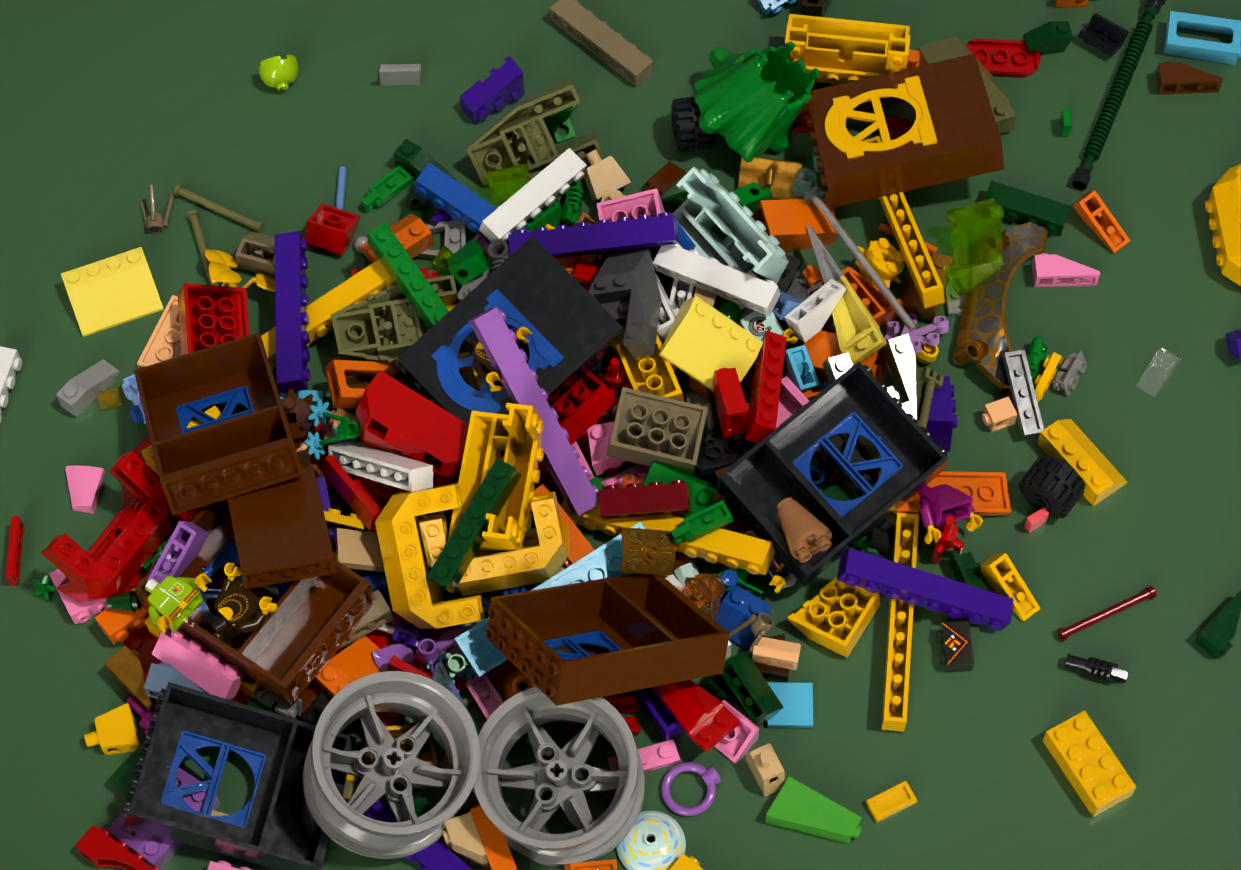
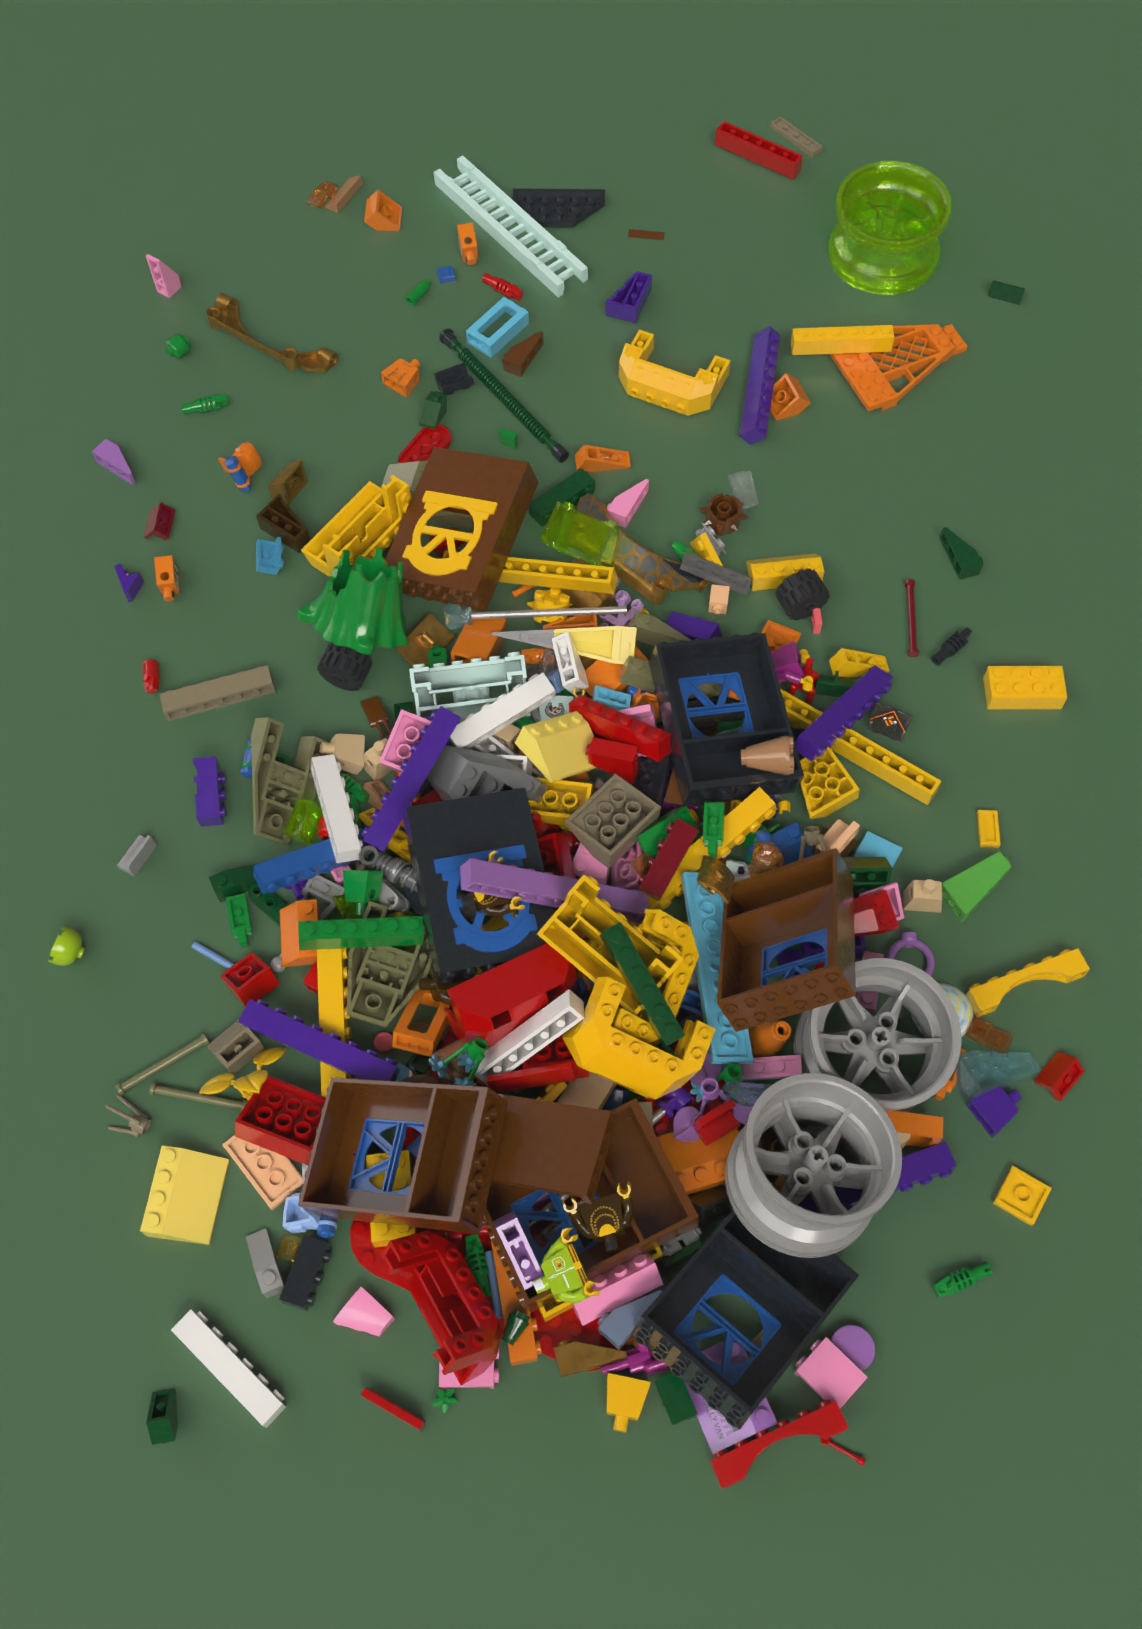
camera: 60 degrees left, 0 degrees up
(94, 421) = (306, 1273): none -> black brick
(932, 381) = (676, 620): olive hinge -> none
(1108, 366) = (723, 514): none -> reddish brown brick

